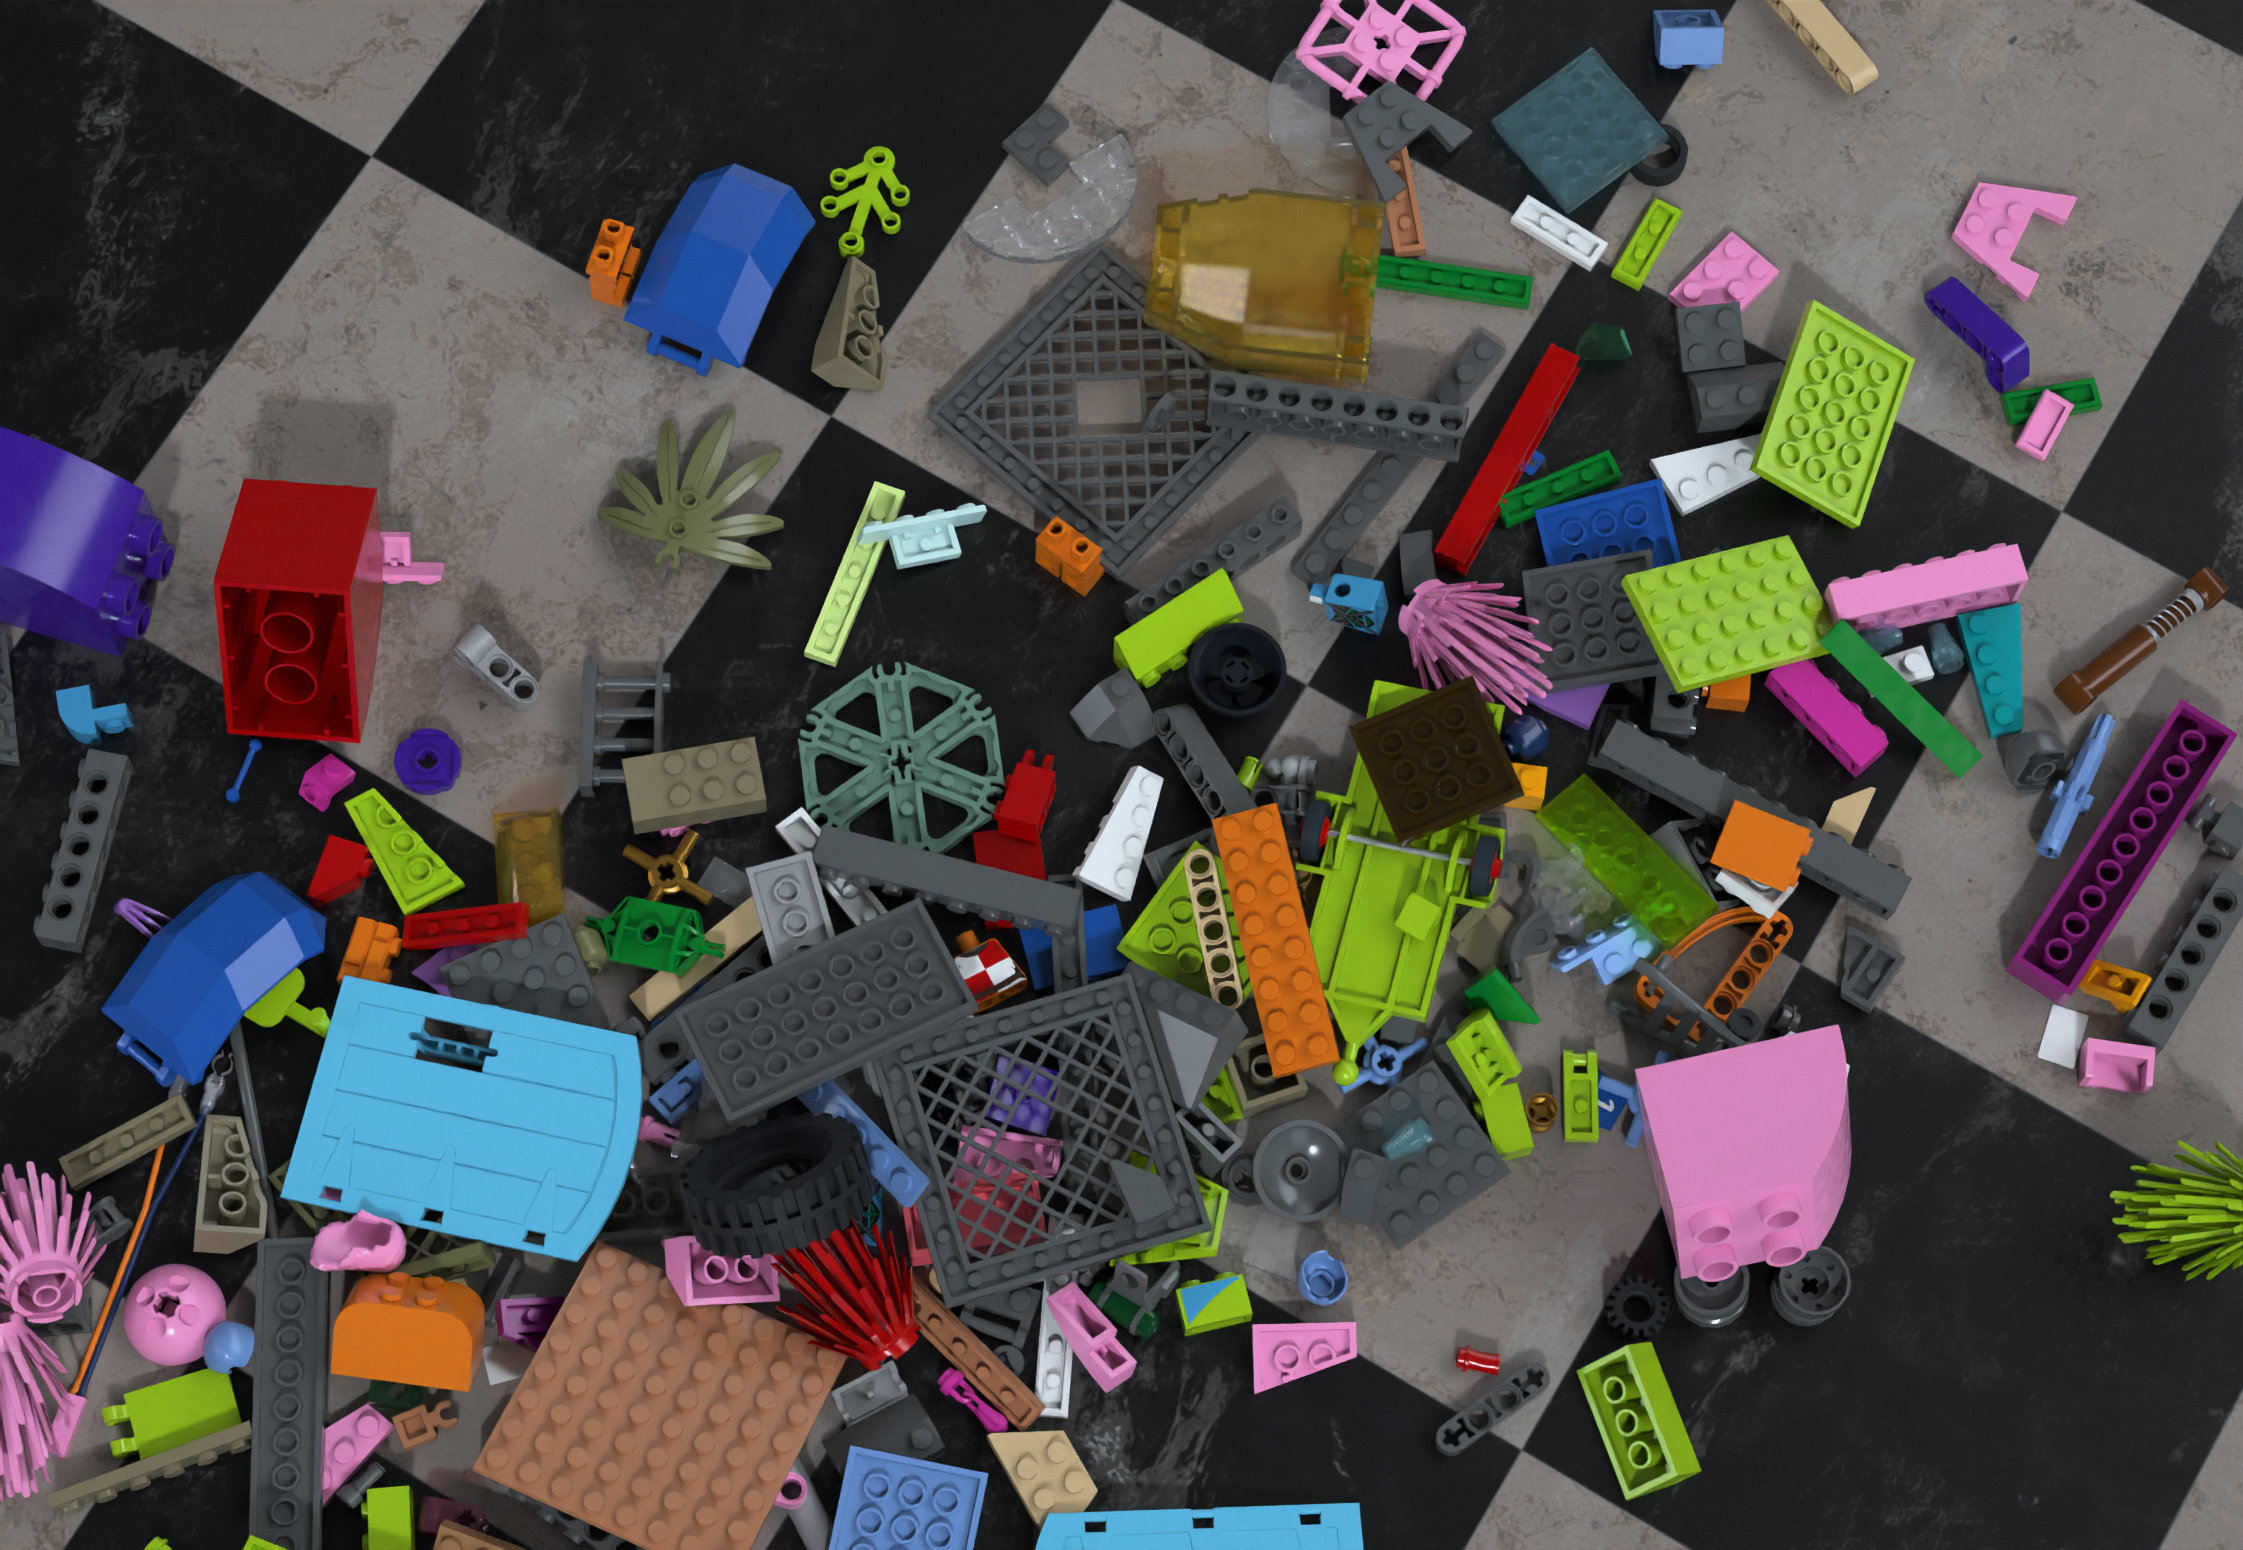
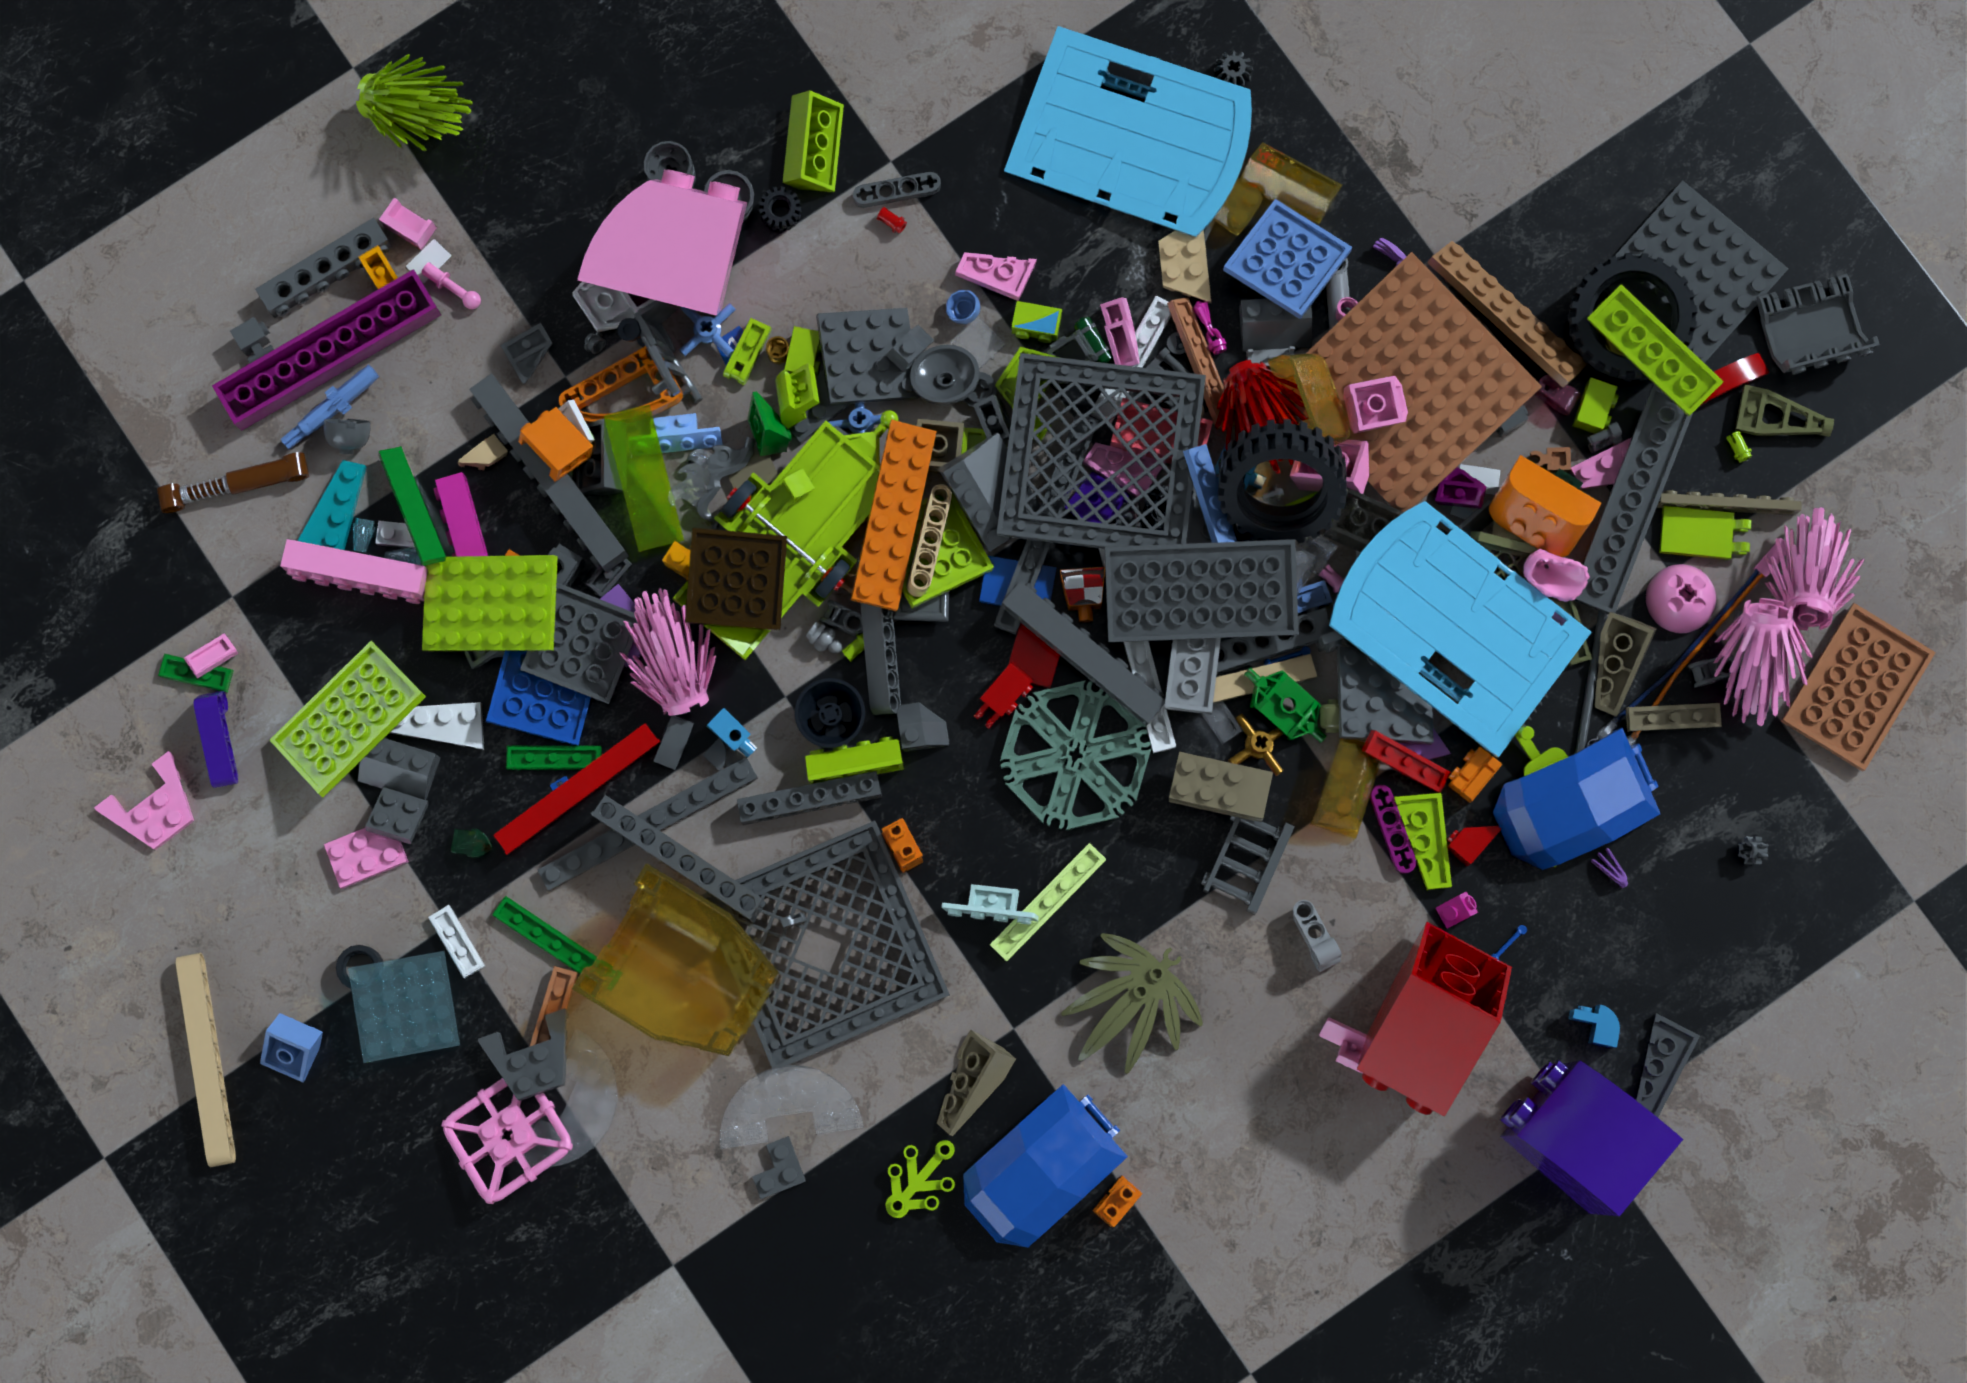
camera: 150 degrees left, 10 degrees up
(71, 931) = (1595, 975): dark grey brick -> none
(228, 1346) = (1656, 555): medium blue hair -> none
(437, 778) = (1397, 888): dark purple plate -> none
(450, 846) = (1396, 828): none -> magenta beam
(693, 1356) = (1375, 404): none -> bright pink slope
(783, 1333) = (1317, 392): none -> clear yellow windscreen
(1117, 851) = (954, 640): white wing -> none
(1142, 1194) = (1054, 385): dark grey slope -> none
(1410, 1138) = (870, 358): clear light blue cone -> none
(1524, 738) = (667, 583): dark blue head -> none
(1647, 244) = (401, 906): lime tile -> none
(1978, 1005) = (470, 299): none -> bright pink pin

